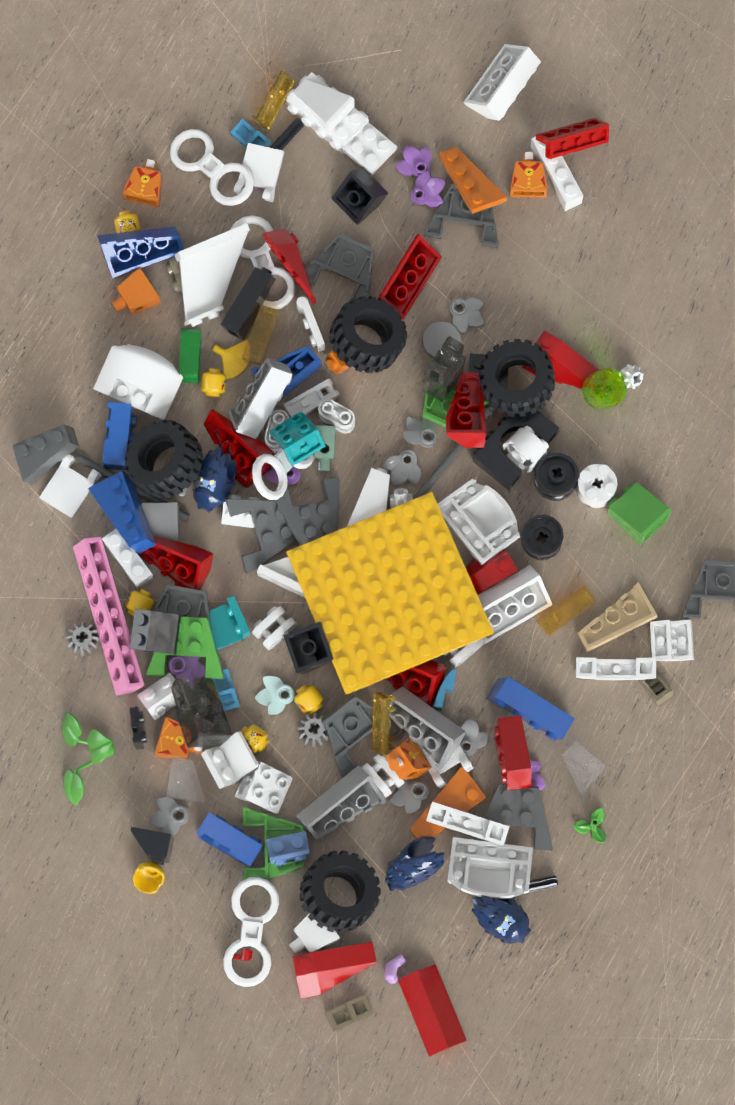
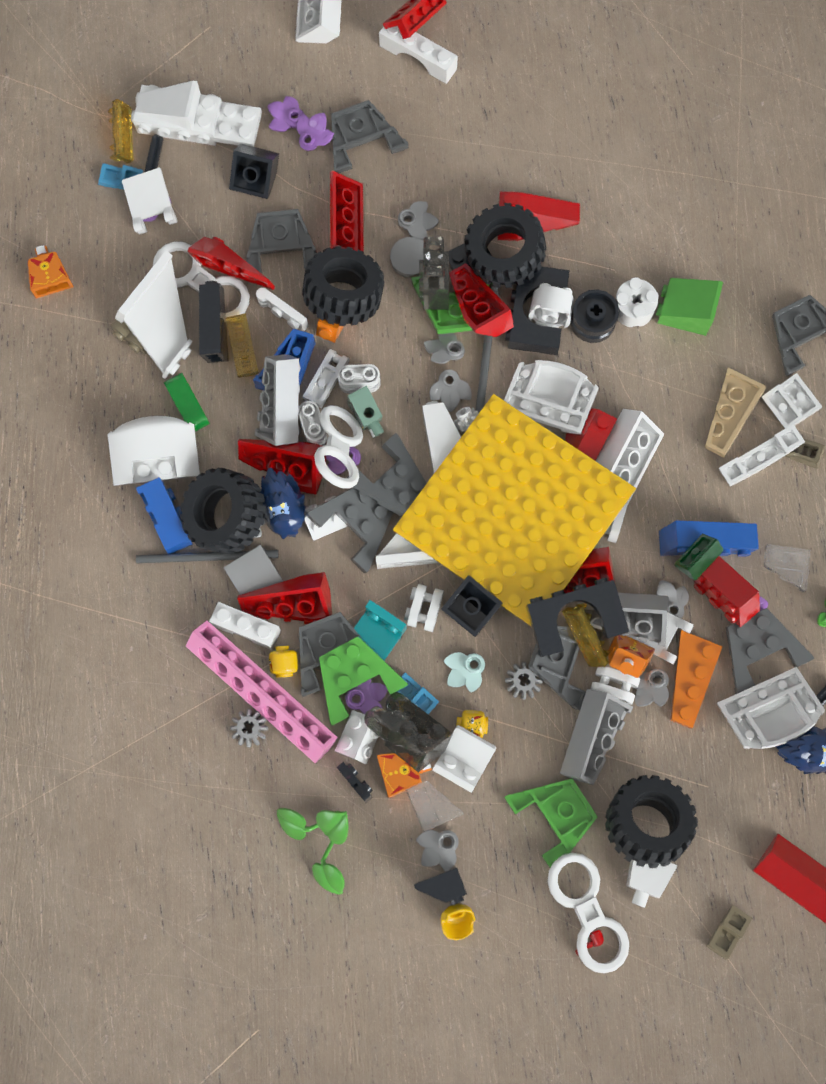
camera: 30 degrees left, 0 degrees up
(43, 451) = (101, 572): dark grey wedge -> none
(68, 488) = (146, 593): white flag -> none
(122, 506) = (211, 579): blue wedge -> none
(127, 222) = (53, 318): yellow head -> none
(136, 294) = (100, 375): orange torso -> none
(139, 248) = (77, 333): blue wedge -> none
(155, 631) = (316, 679): slope -> none
(211, 167) = (101, 221): white bar -> none
(213, 383) = (224, 415): yellow head -> none
(230, 840) = (513, 835): wedge -> none
(232, 359) = (229, 384): yellow hand -> none
(264, 787) = (511, 765): white bracket -> none
(288, 848) = (573, 809): medium blue bracket -> none
(297, 438) = (339, 416): teal bracket -> none
(308, 699) = (500, 655): yellow head -> none
(327, 968) = (684, 898): red wedge -> none
(358, 685) = (601, 597): none -> black arch
(391, 968) = (741, 864): lavender arm -> none
(413, 864) = (699, 759): dark blue head -> none
(447, 686) = (619, 564): dark azure slope -> none
(467, 823) = (725, 681): white slope -> none
(471, 183) = (347, 102): orange wing -> none
(506, 715) = (699, 556): none -> dark green slope
(528, 178) = (397, 71): orange torso -> none
(547, 527) = (621, 365): black wheel -> none
(566, 611) = (680, 432): clear yellow plate -> none
(614, 386) = (586, 213): clear neon green brick -> none
(632, 376) = (601, 190): white gear -> none

